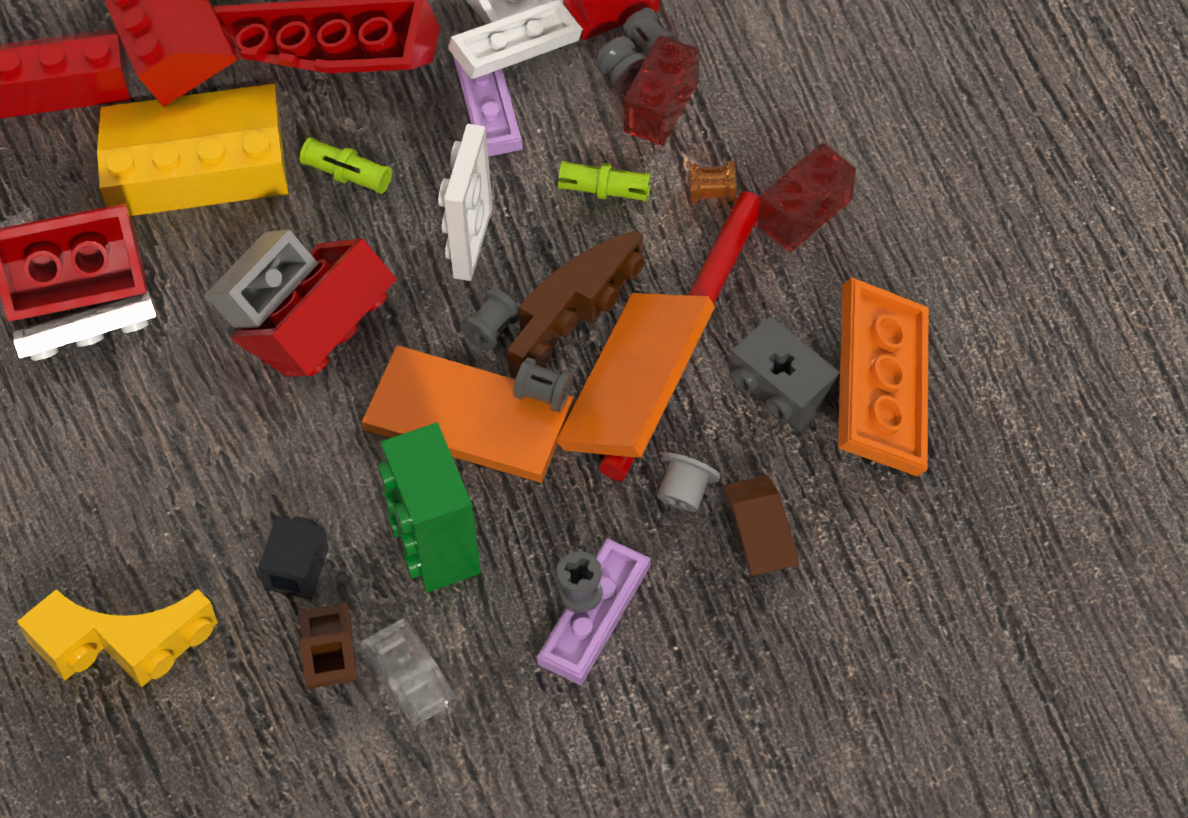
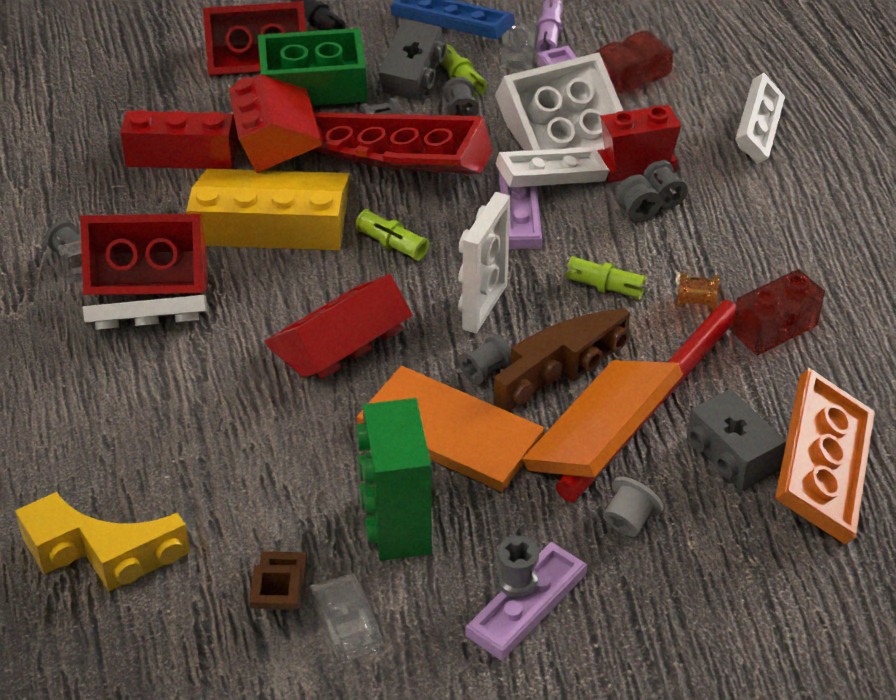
camera: 10 degrees right, 15 degrees down
(261, 279) = (299, 297): light grey brick -> none
(293, 557) = (269, 508): black brick -> none
(543, 384) = (519, 409): dark grey bush -> none
(661, 90) = (666, 219): clear red brick -> none
(760, 525) = (693, 554): reddish brown slope -> none

